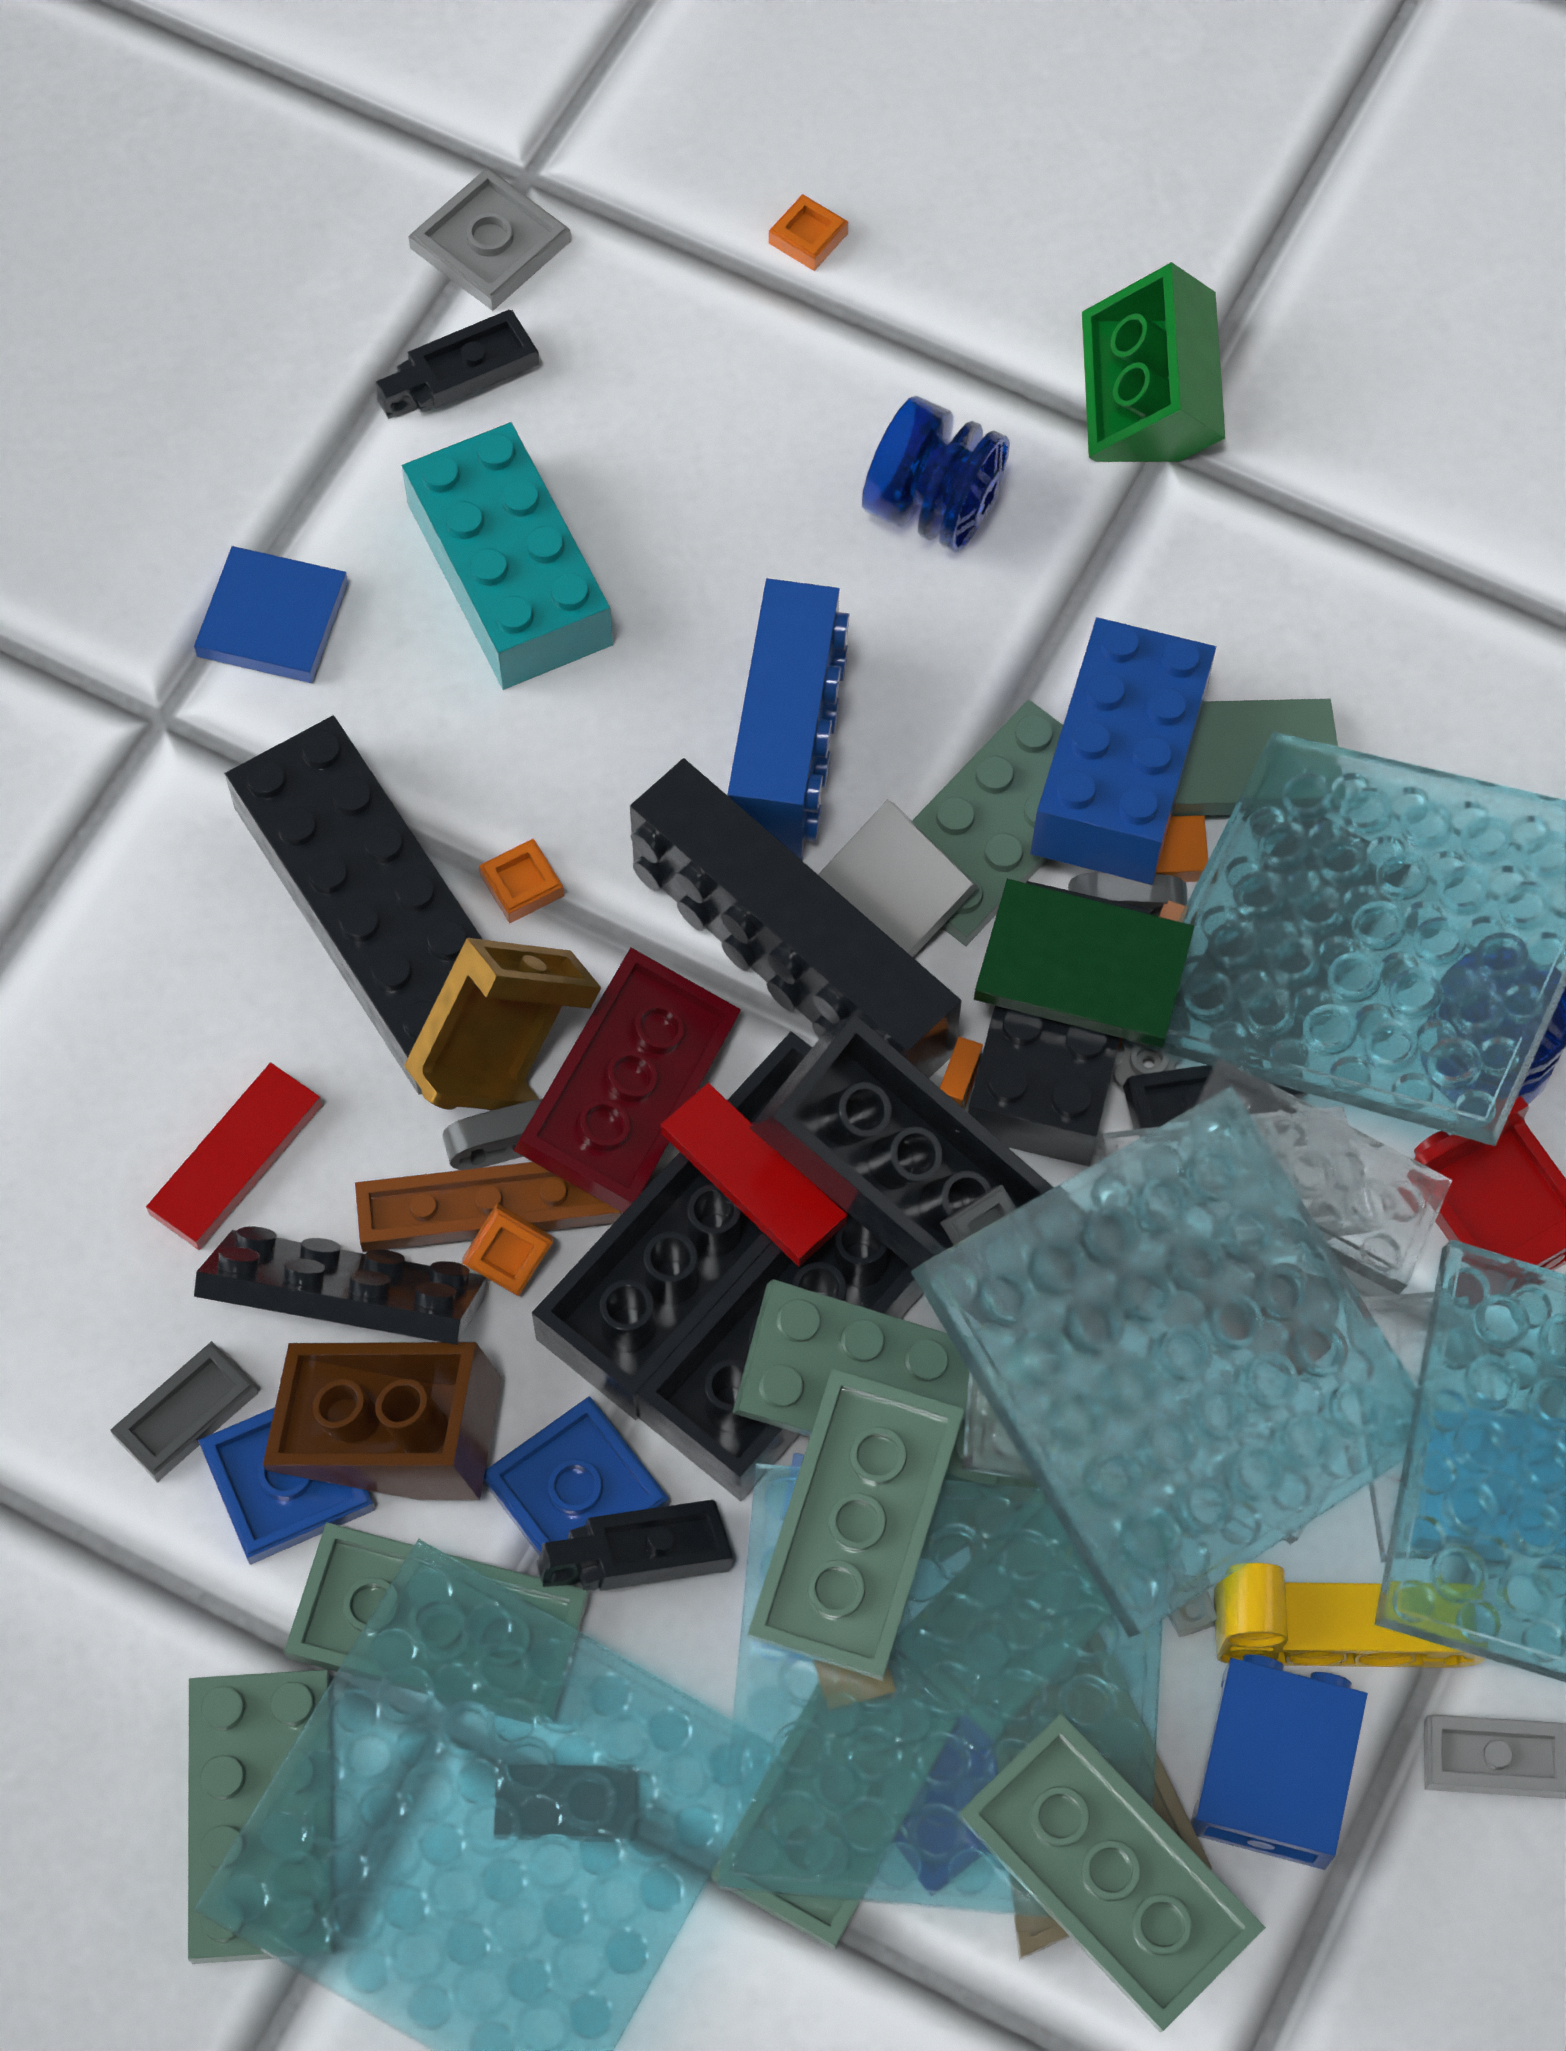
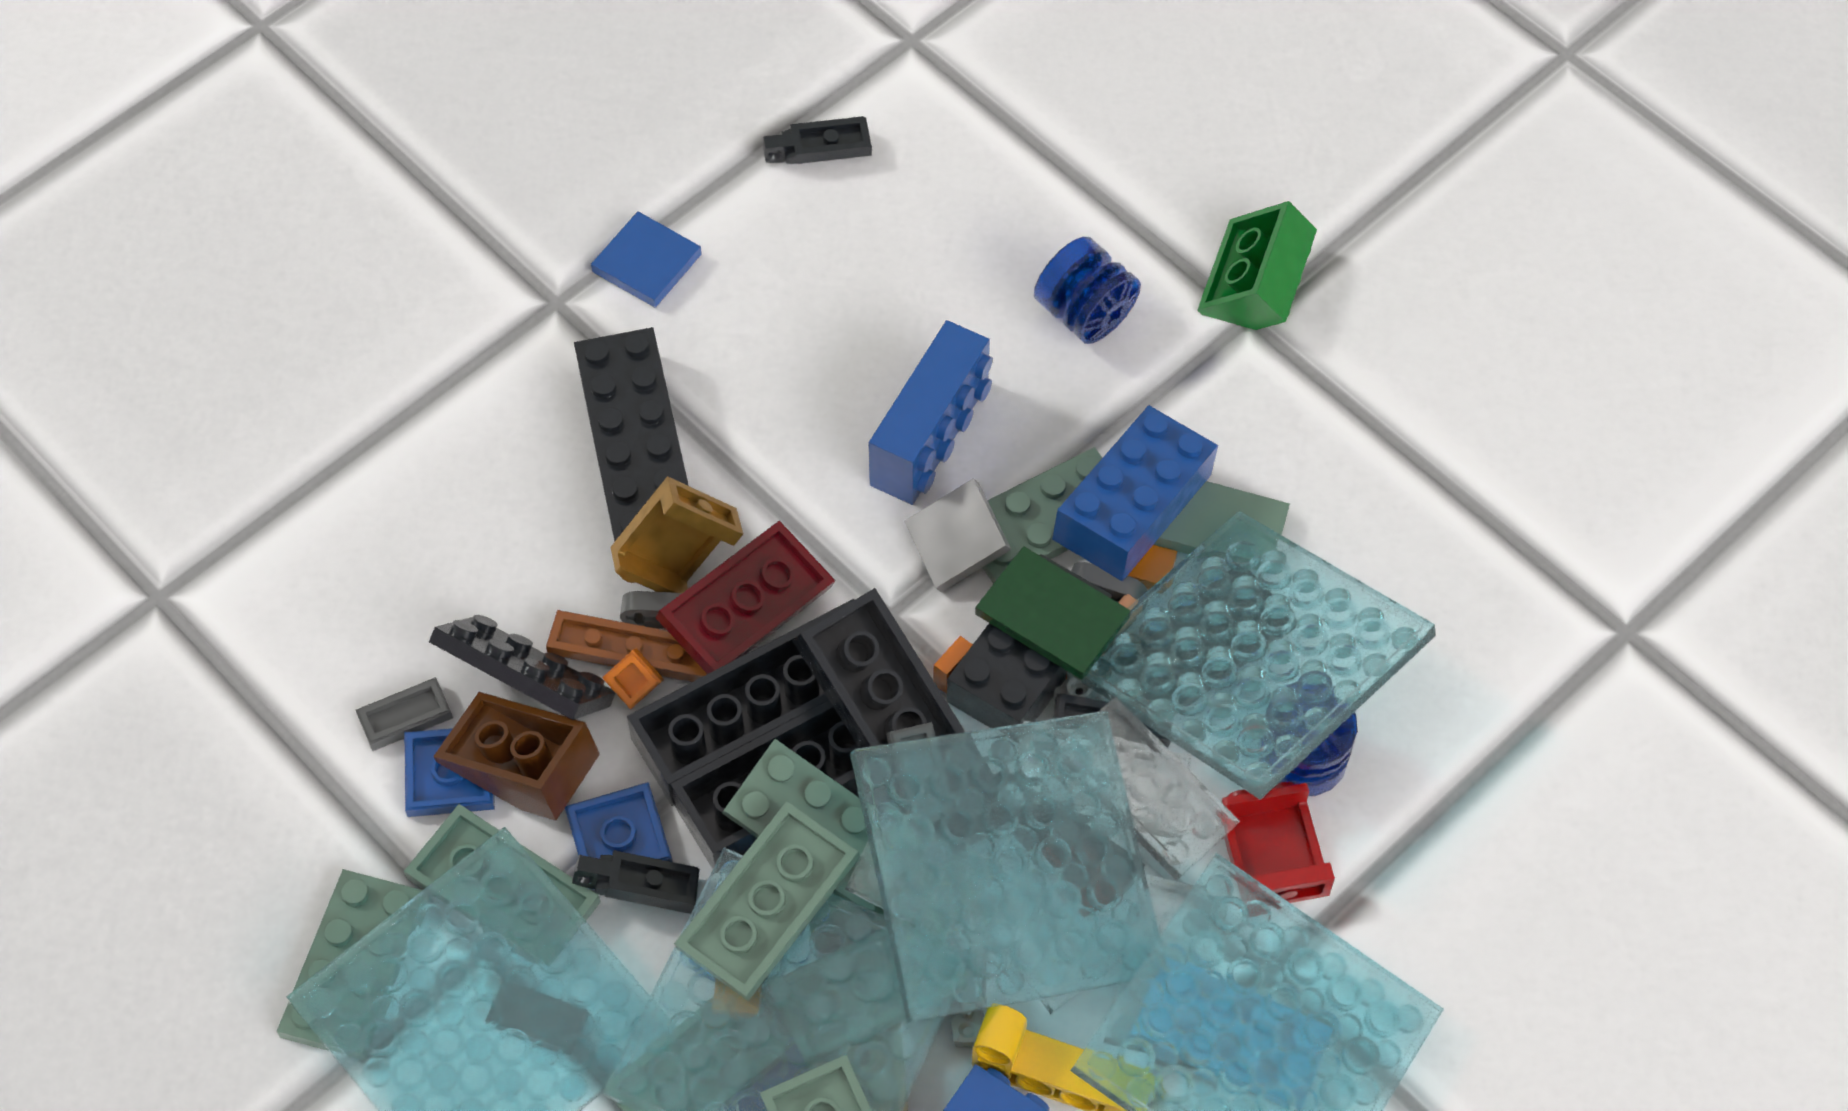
camera: 20 degrees right, 5 degrees down
(234, 1156) = (494, 573): red tile -> none
(489, 238) = (872, 71): light grey tile -> none
(507, 555) = (802, 264): teal brick -> none
(521, 880) = (734, 463): orange tile -> none
(753, 1174) = (791, 677): red tile -> none
(785, 919) = (881, 536): black brick -> none
(808, 232) = (1074, 122): orange tile -> none

